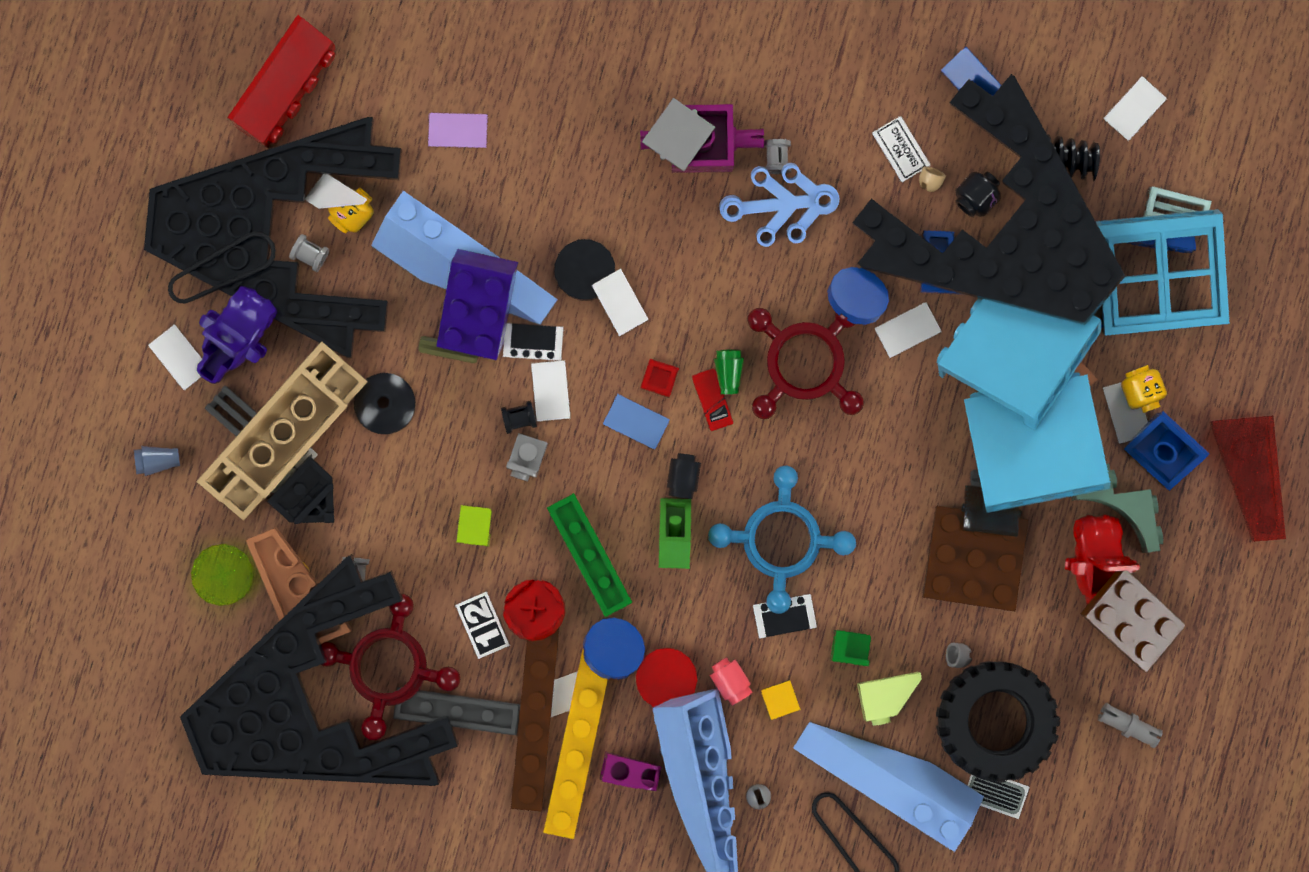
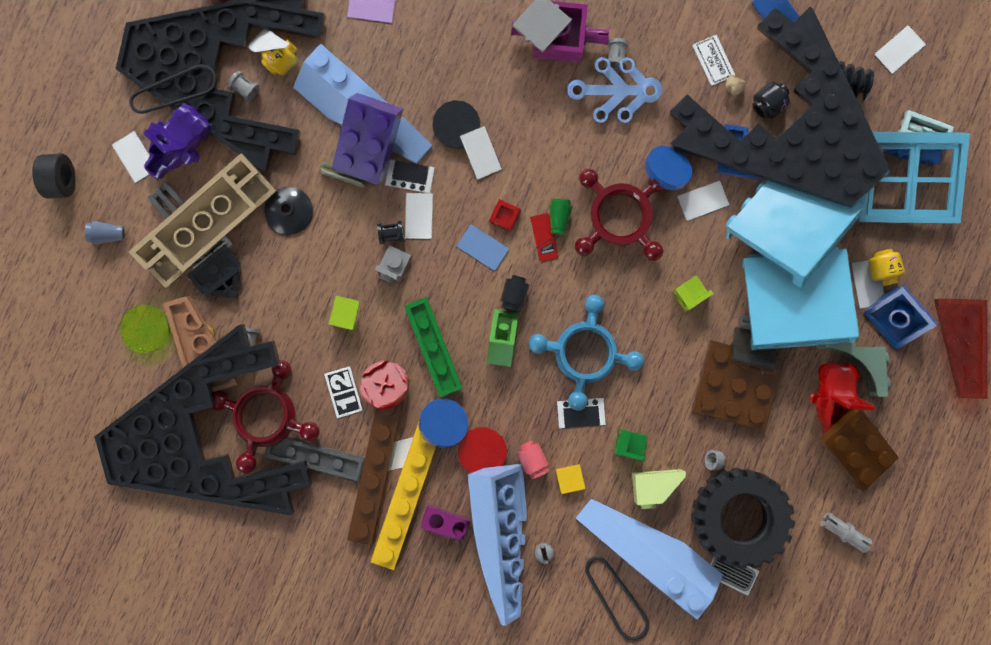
camera: 15 degrees right, 0 degrees up
(85, 395) = (53, 175): none -> black tyre
(905, 449) = (691, 293): none -> lime panel

